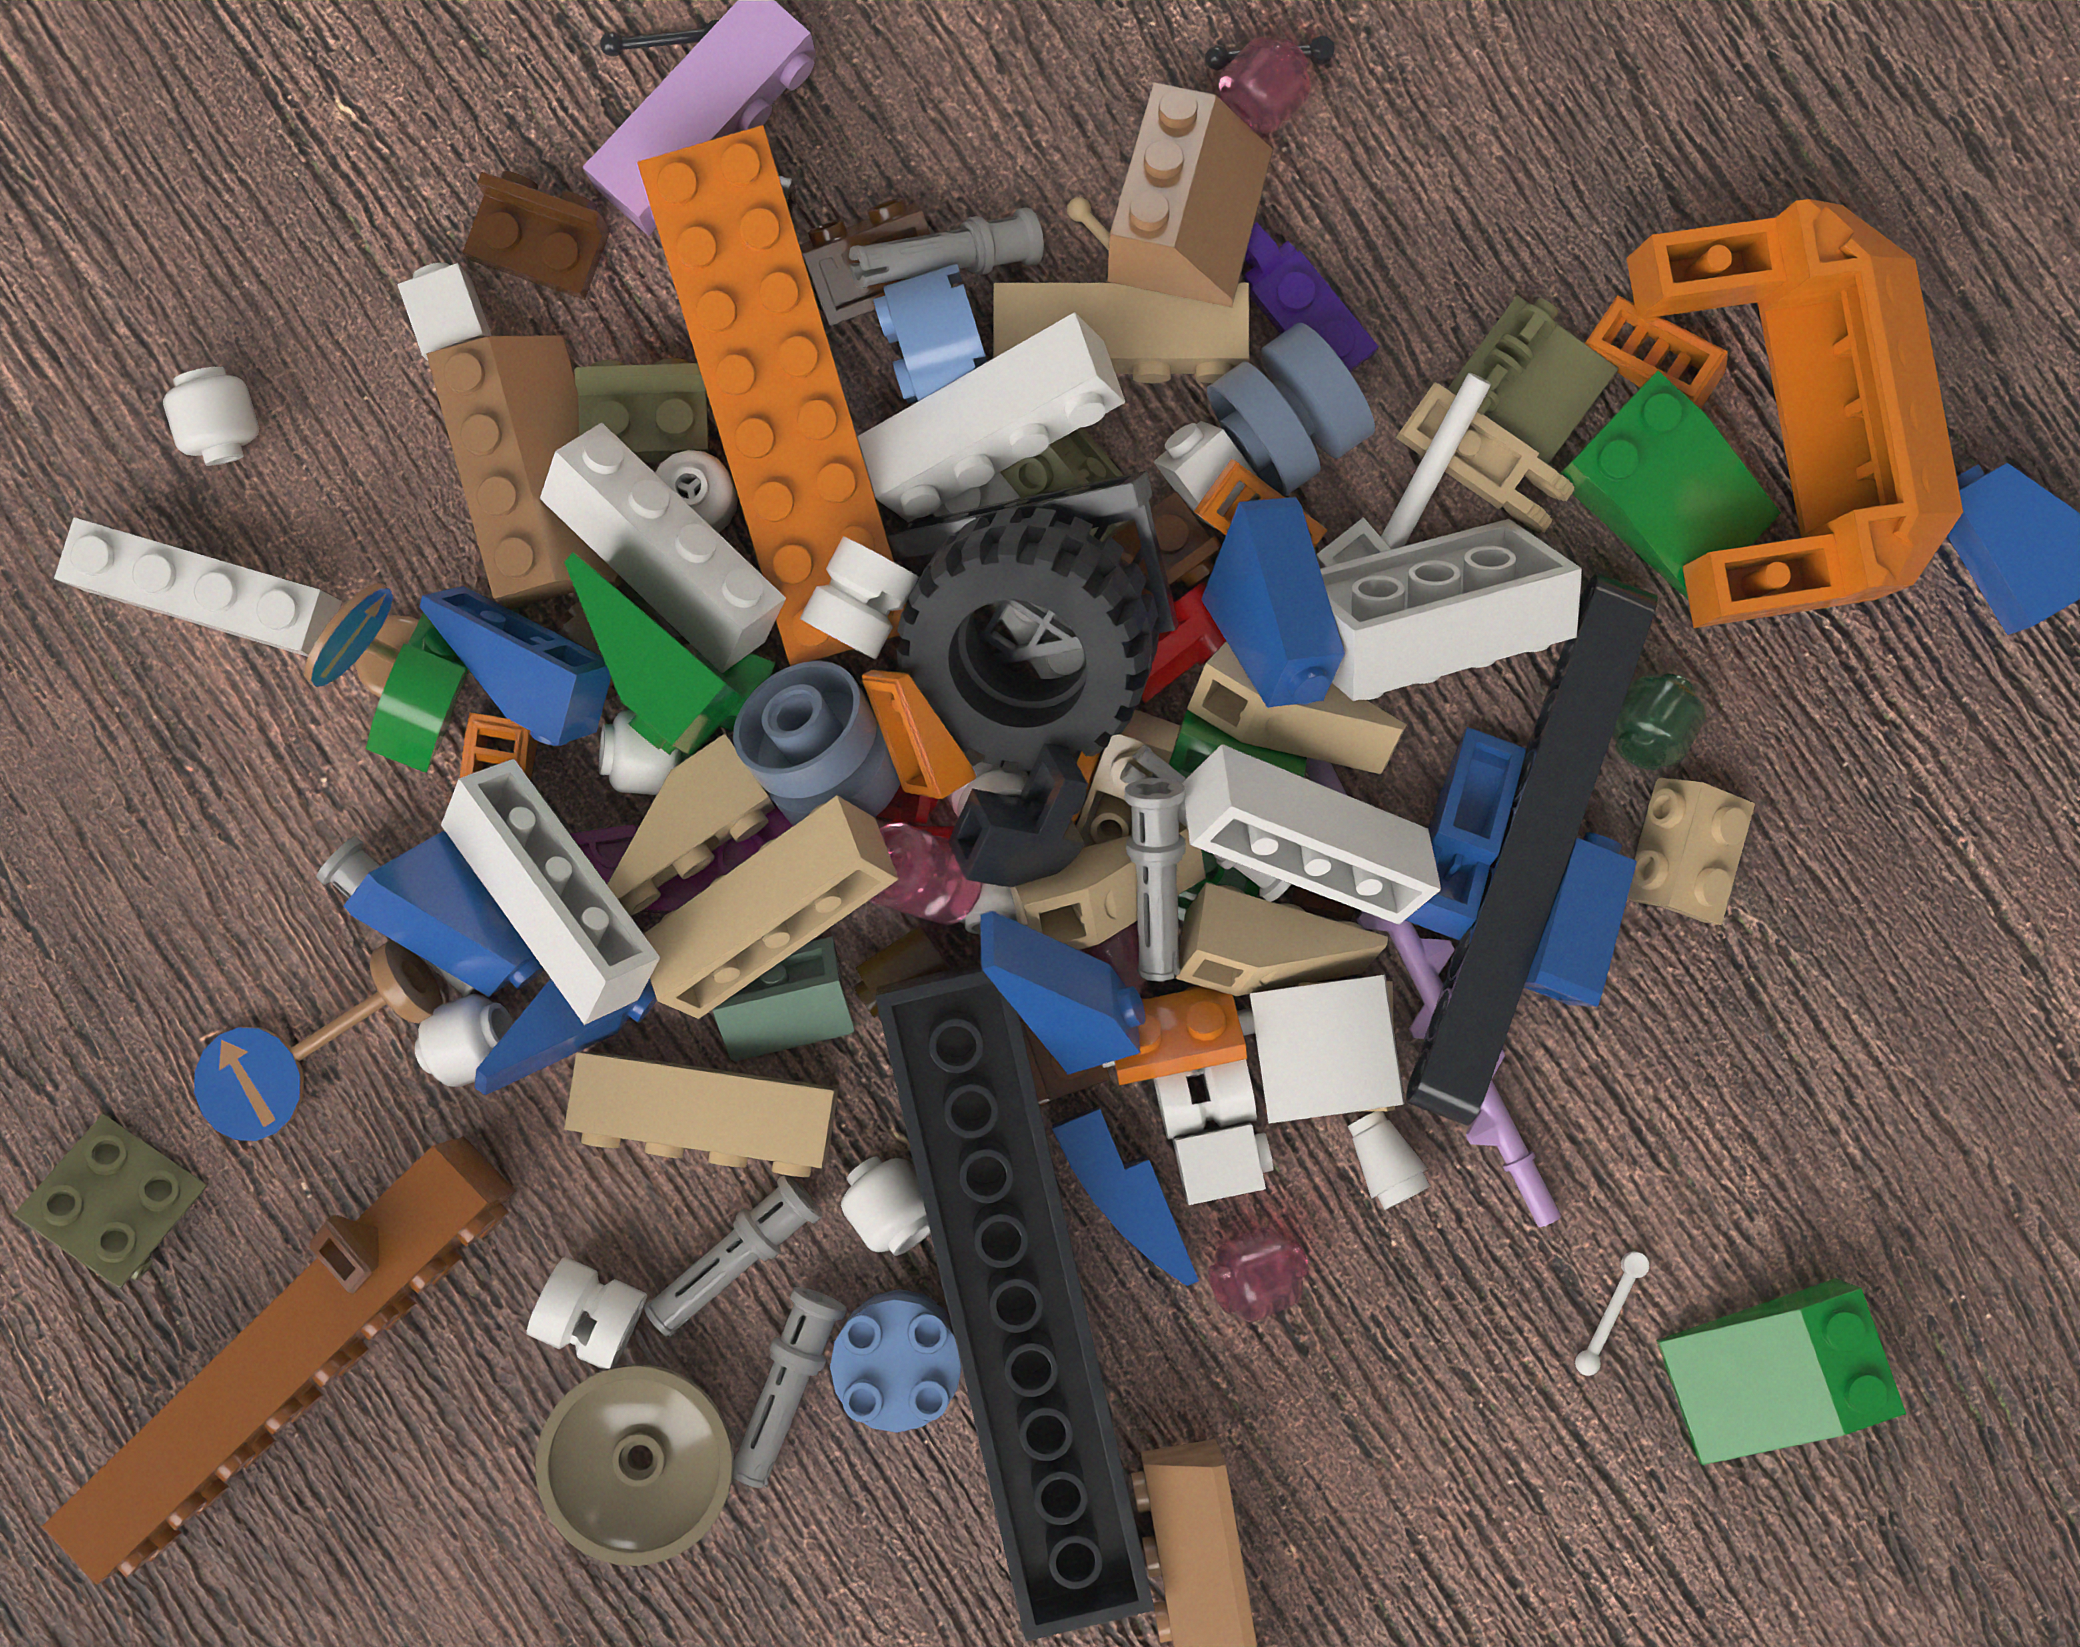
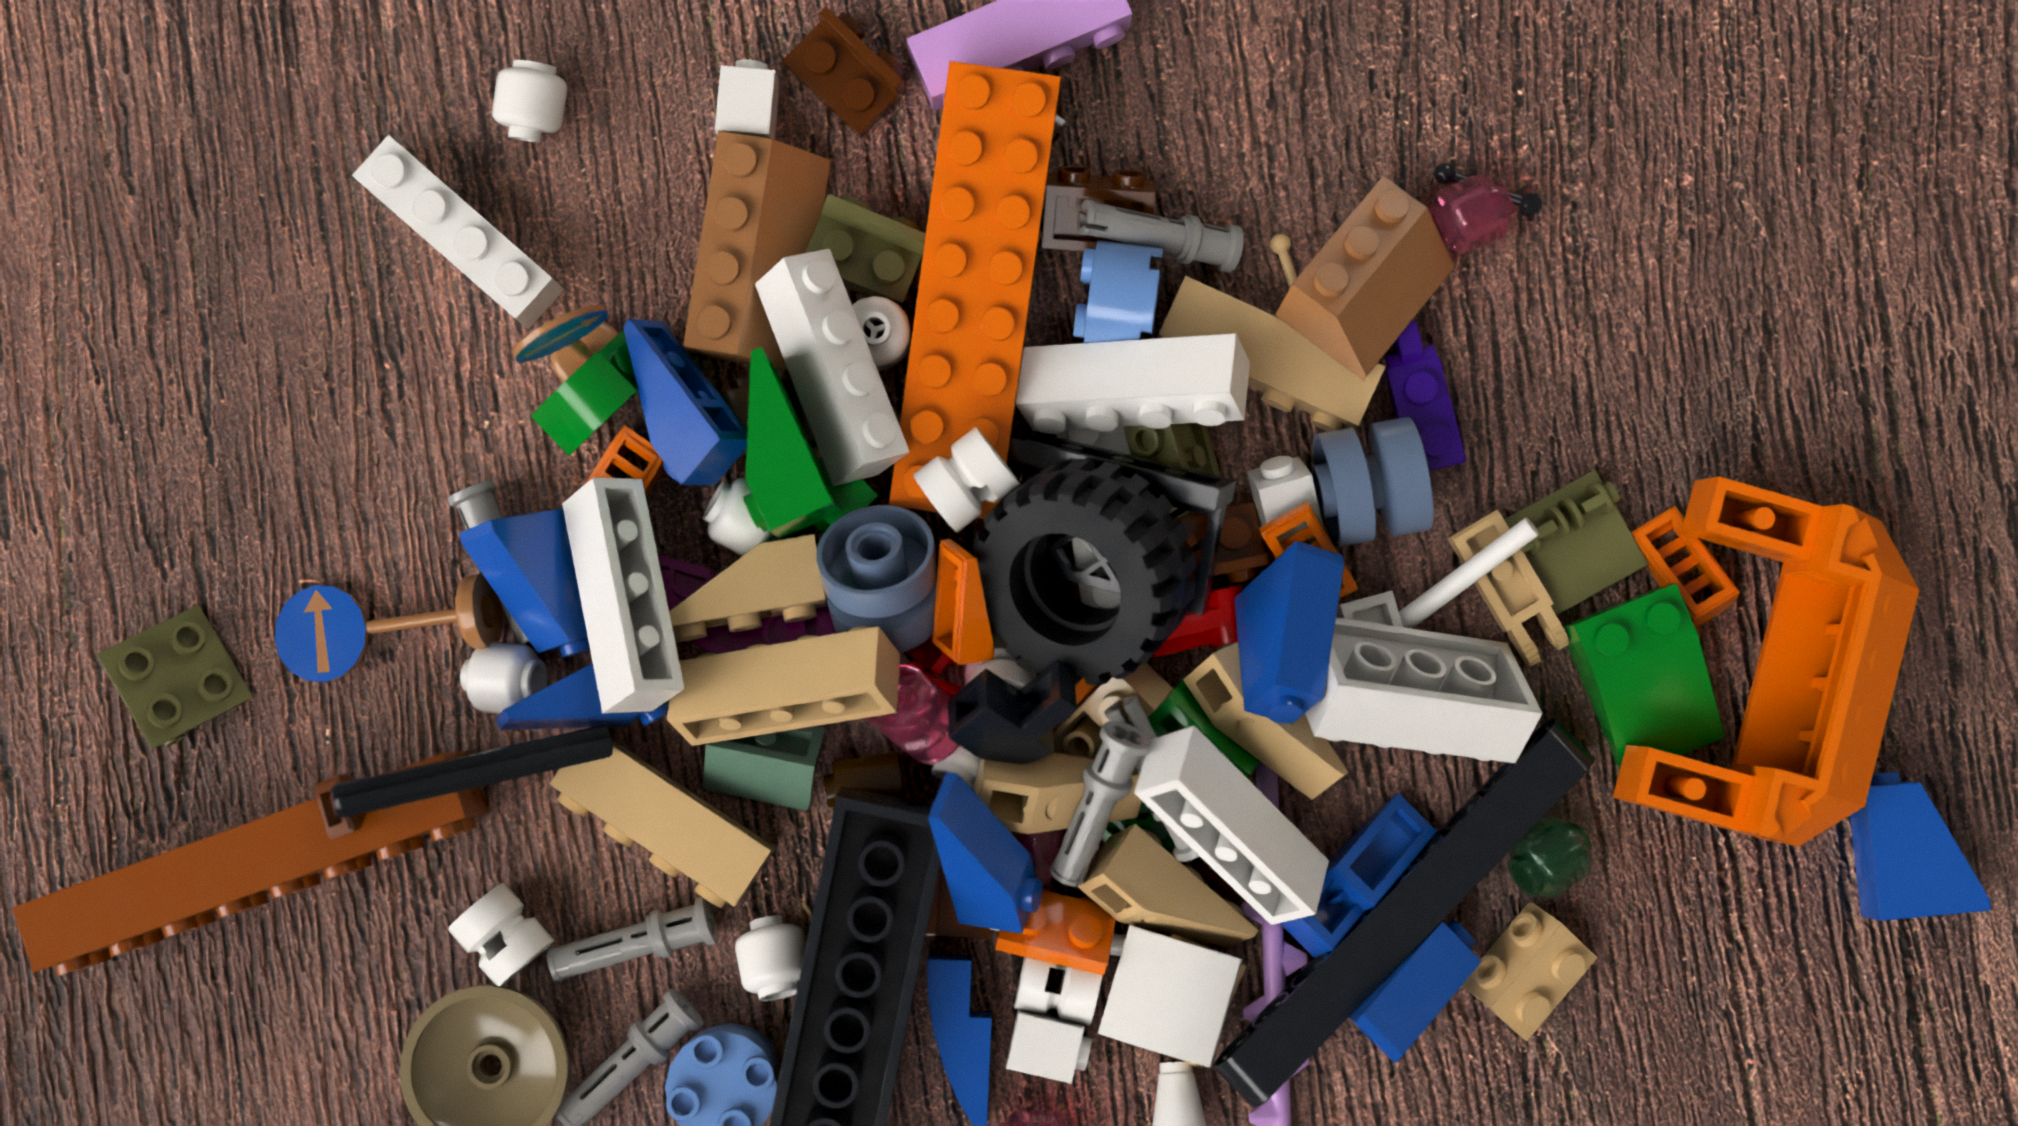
camera: 25 degrees right, 0 degrees up
(469, 1152) = (470, 771): none -> black axle

